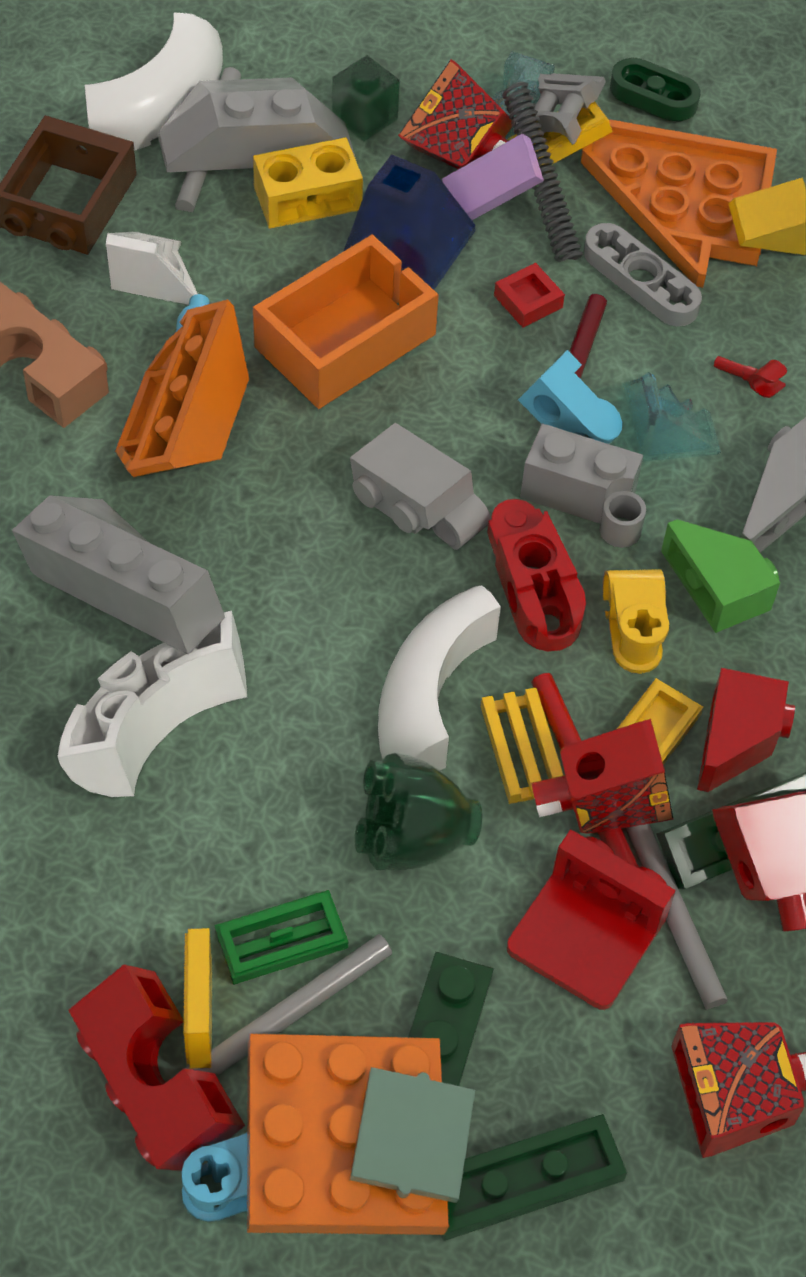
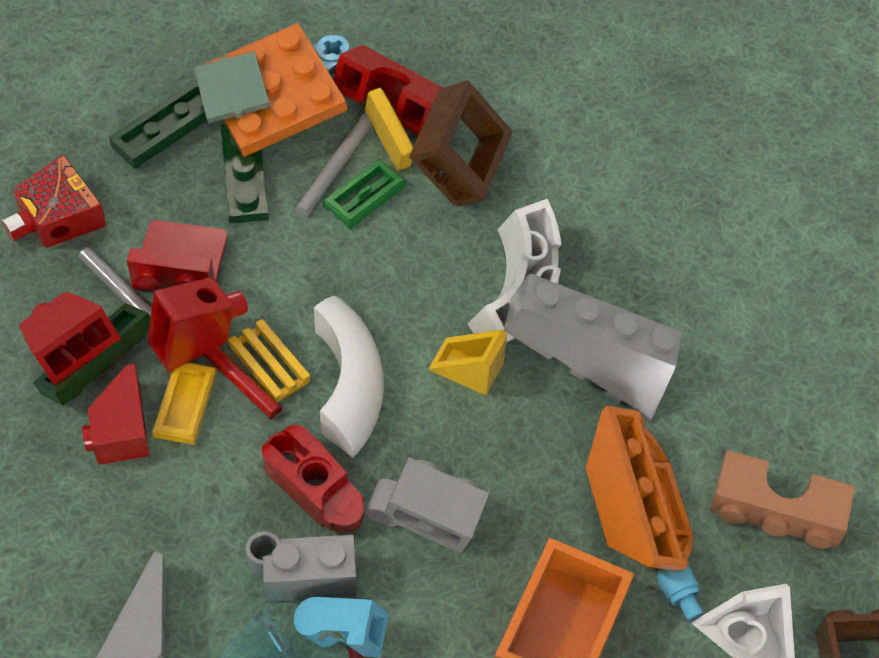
camera: 155 degrees right, 0 degrees up
(115, 907) = (433, 153): none -> reddish brown window
(275, 629) = (472, 359): none -> yellow slope
(413, 814) = (313, 270): clear green piece -> none
(636, 617) = (224, 479): yellow piece -> none
(720, 573) = (172, 530): bright green slope -> none

